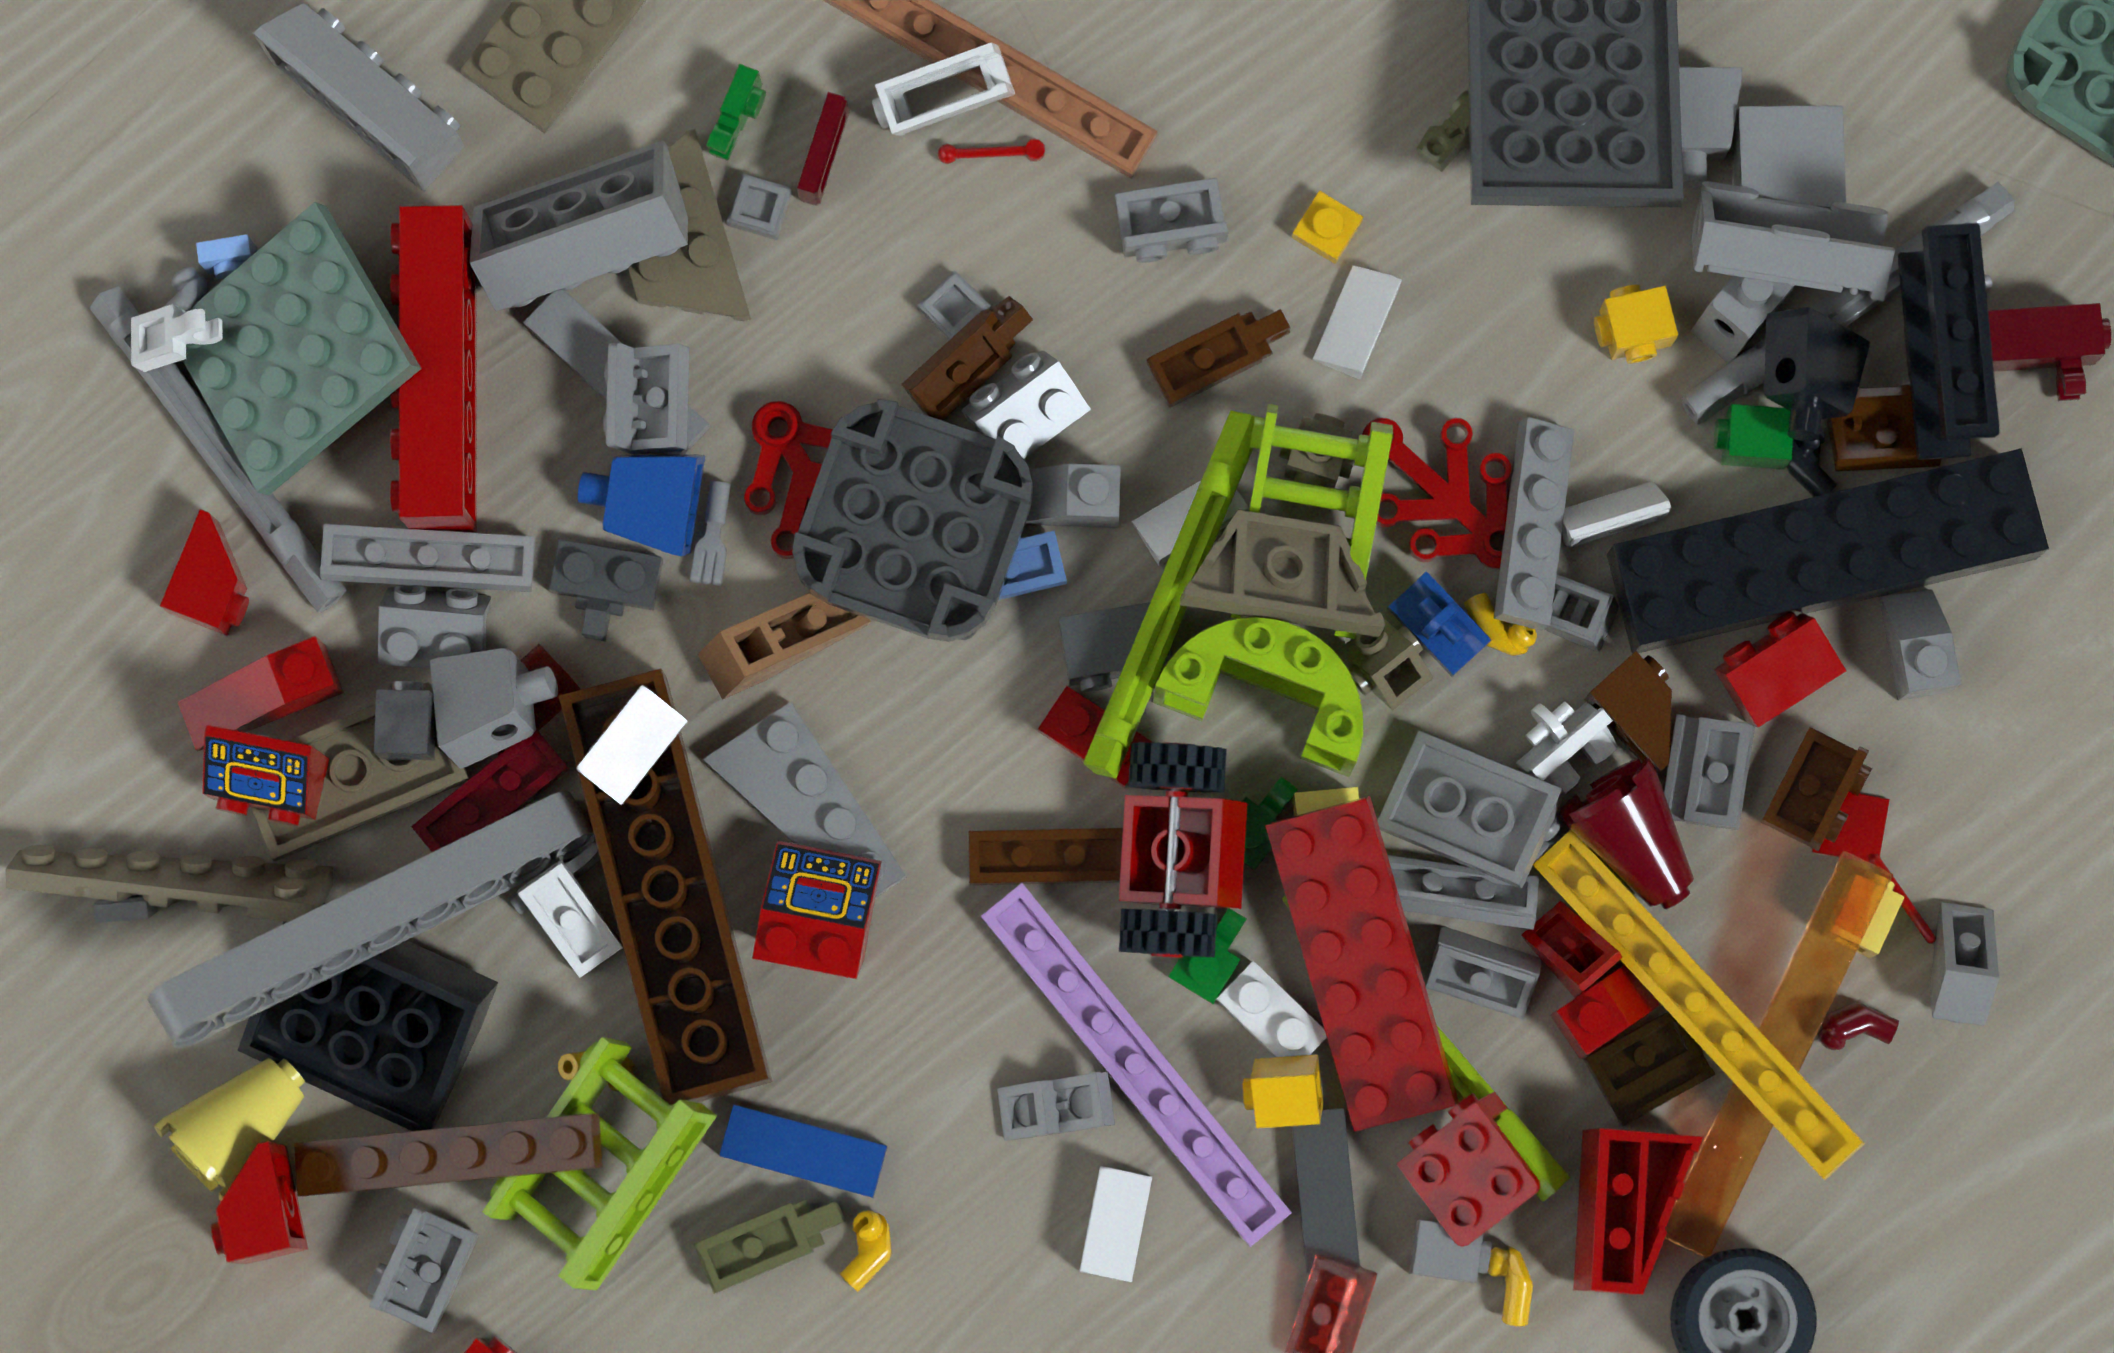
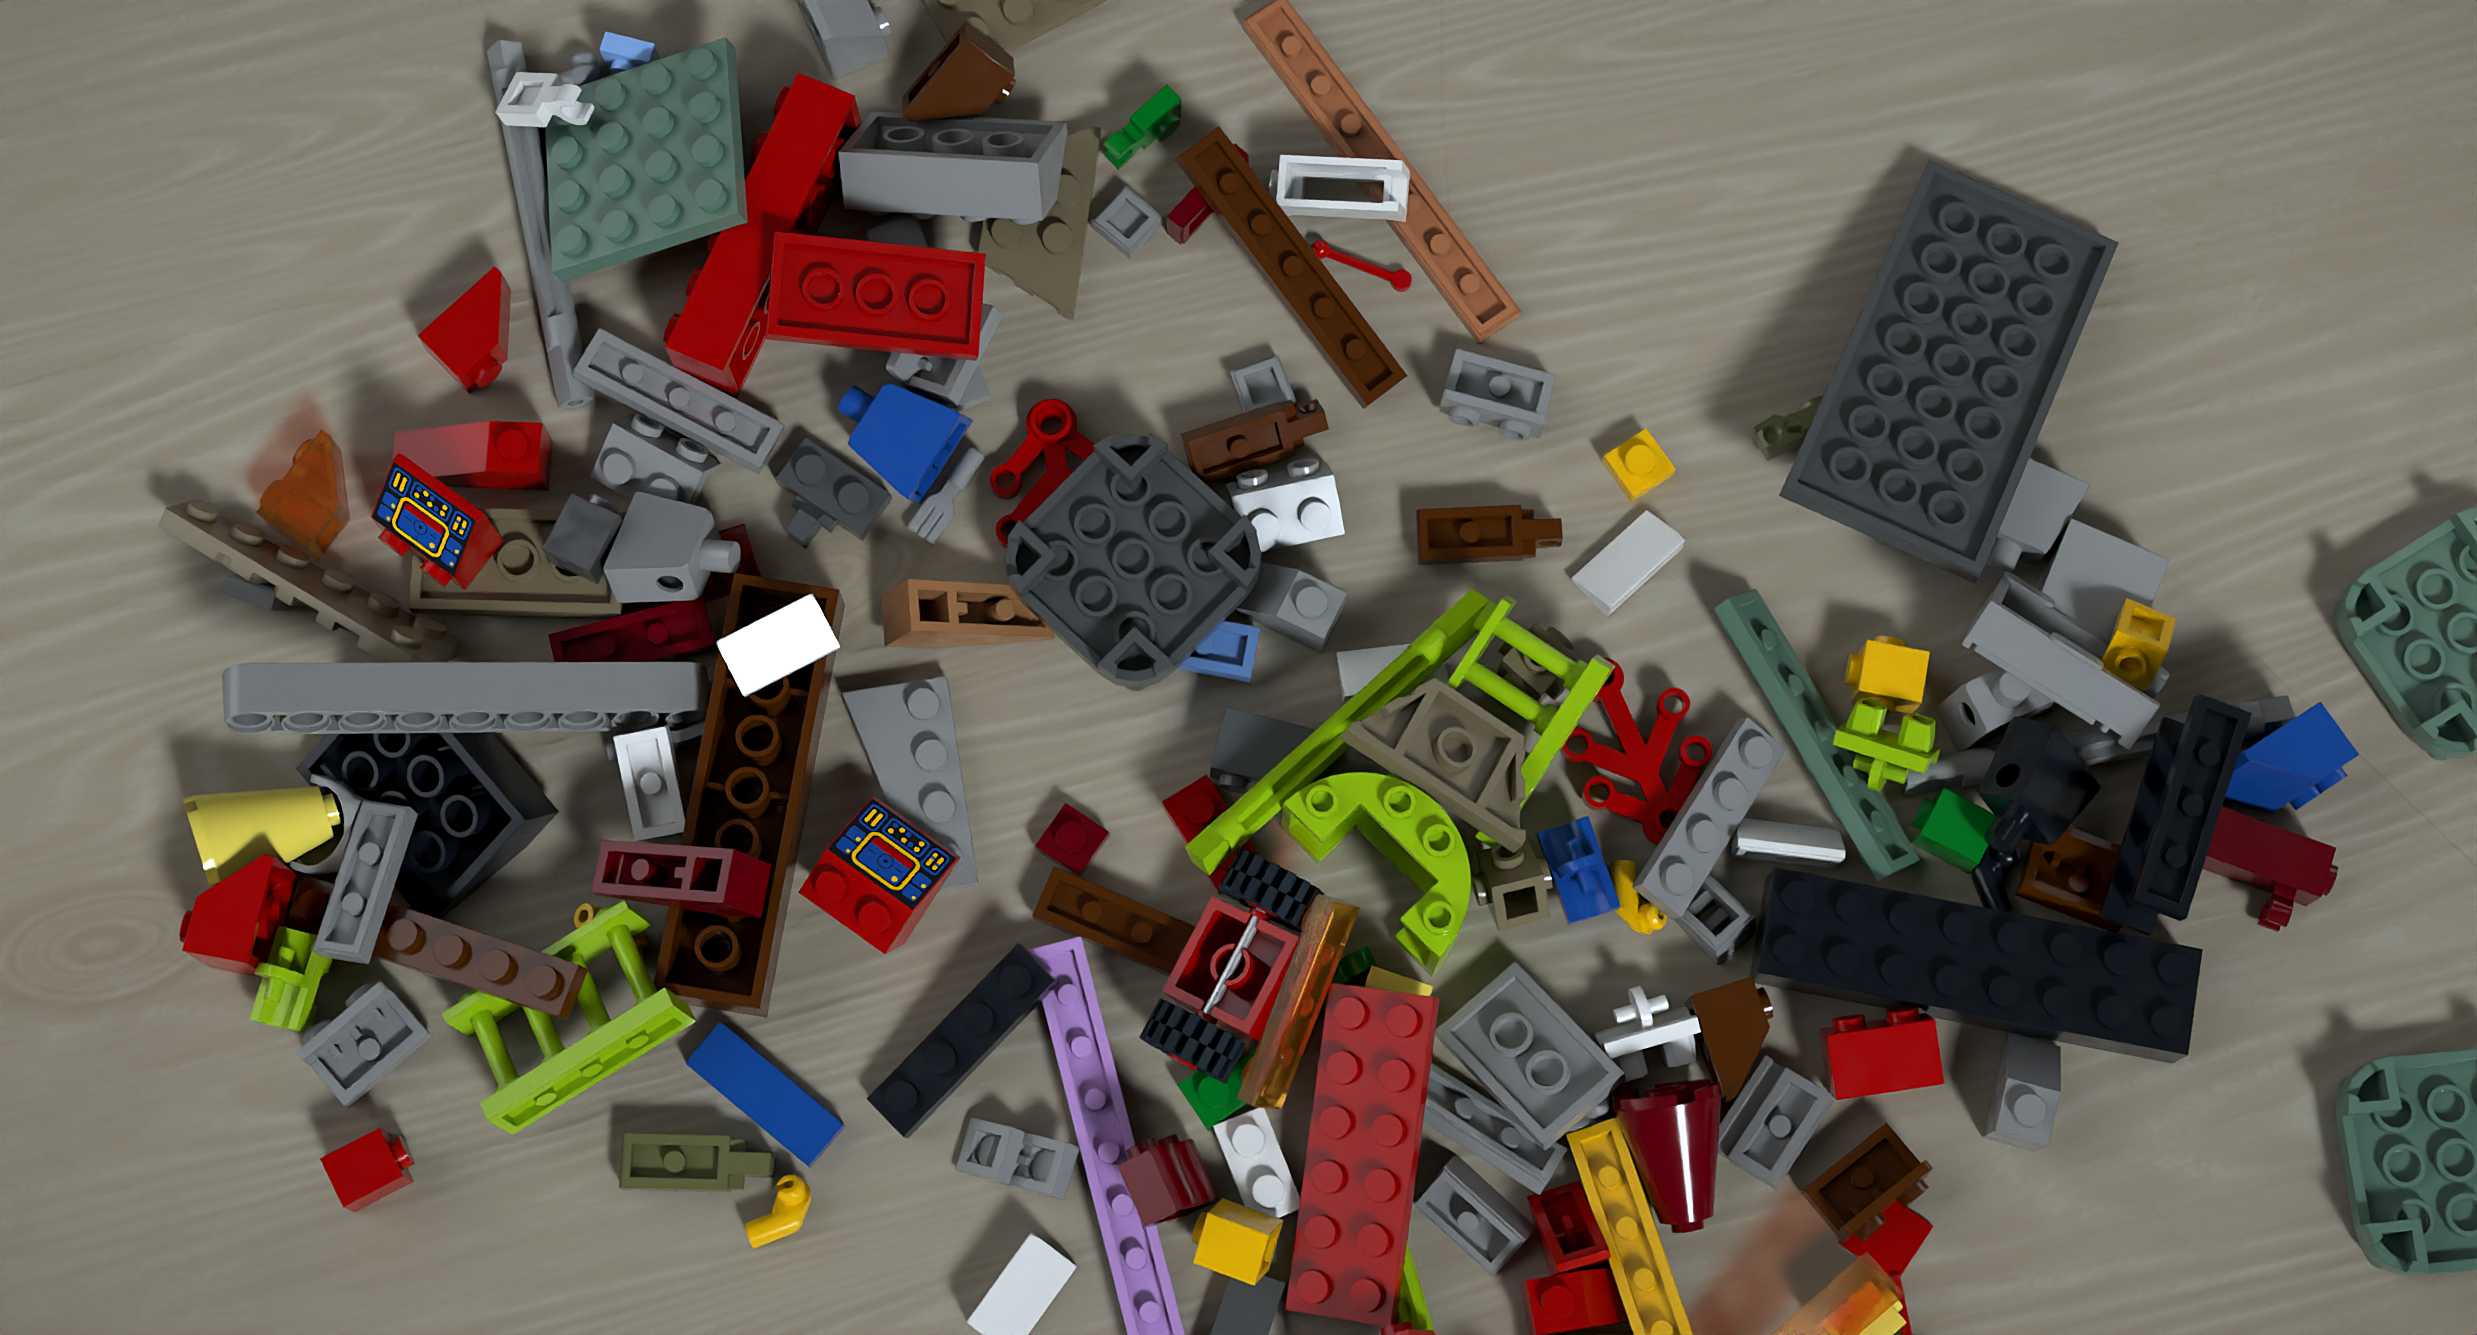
camera: 20 degrees right, 5 degrees down
(132, 801) = (311, 499): none -> clear orange slope
(316, 1068) = (350, 804): none -> light grey cap
(330, 1242) = (289, 982): none -> lime hips
(356, 1125) = (365, 882): none -> light grey tile
(545, 142) = (961, 79): none -> reddish brown slope
(569, 384) = (875, 296): none -> red plate
(645, 993) = (683, 877): none -> dark red slope
(932, 185) = (1291, 267): none -> reddish brown plate
(959, 1023) = (962, 1040): none -> black plate
(972, 799) = (1072, 840): none -> dark red plate
(1200, 1065) = (1167, 1180): none -> dark red brick
(1244, 789) = (1298, 1002): none -> clear orange plate
(1595, 404) = (1812, 729): none -> sand green plate
(1664, 394) = (1908, 749): none -> lime hips
(1849, 197) = (2138, 644): none -> yellow bracket
(2030, 243) = (2291, 763): none -> blue slope

